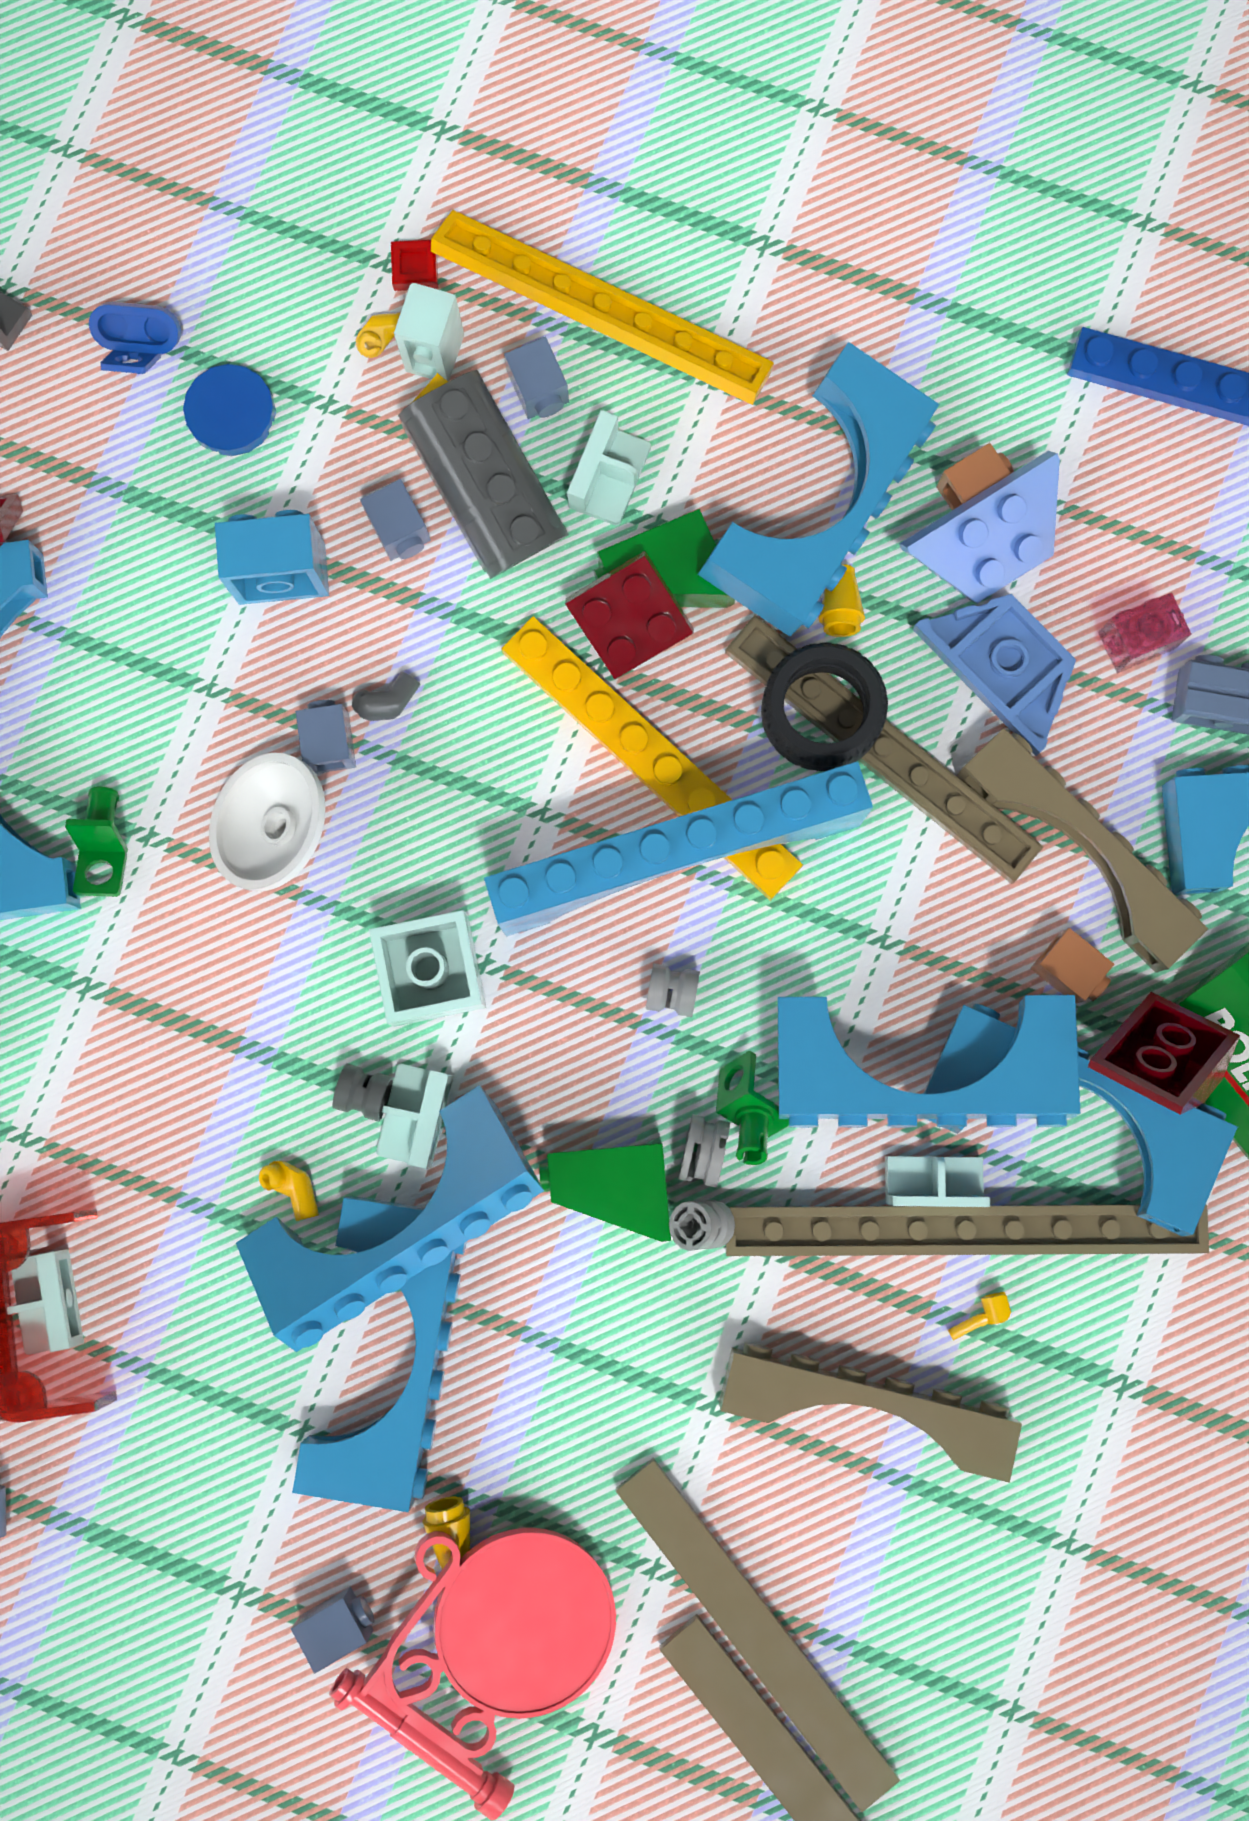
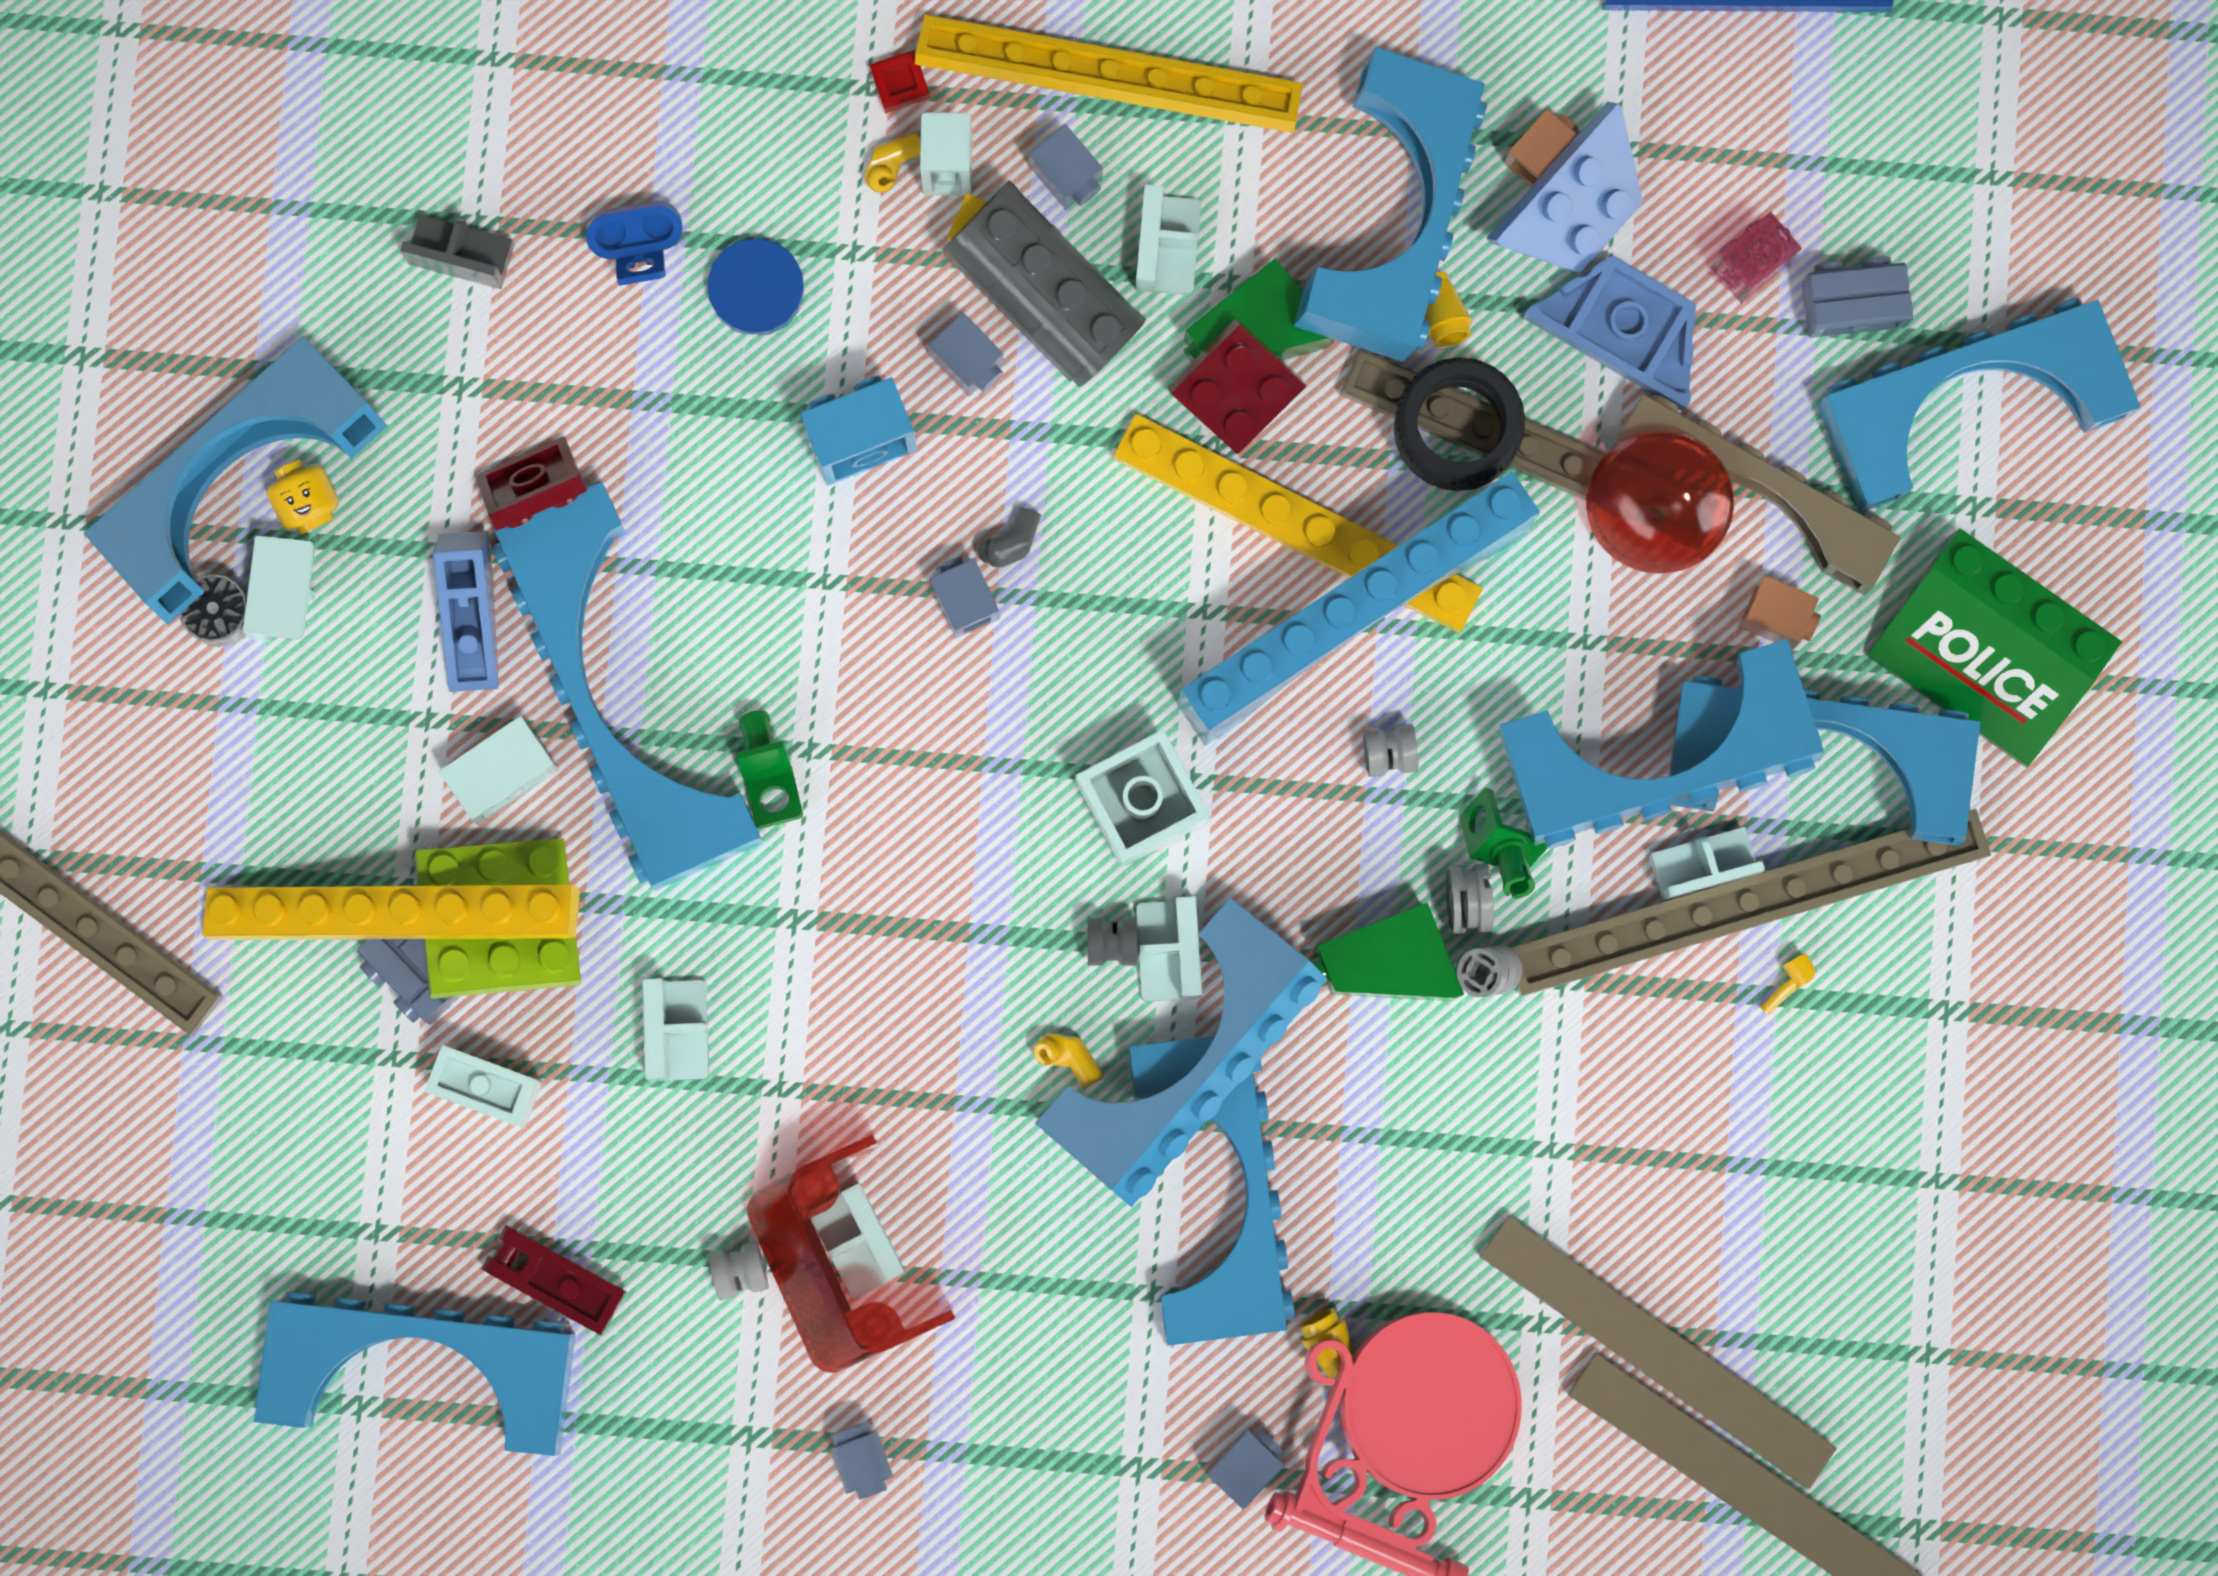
camera: 25 degrees left, 0 degrees up
(267, 822) = (914, 695): white dish -> none
(768, 1388) = (1806, 1101): dark tan arch -> none
(998, 802) = (1668, 472): none -> clear red dish
(1167, 1054) = (1893, 670): dark red slope -> none

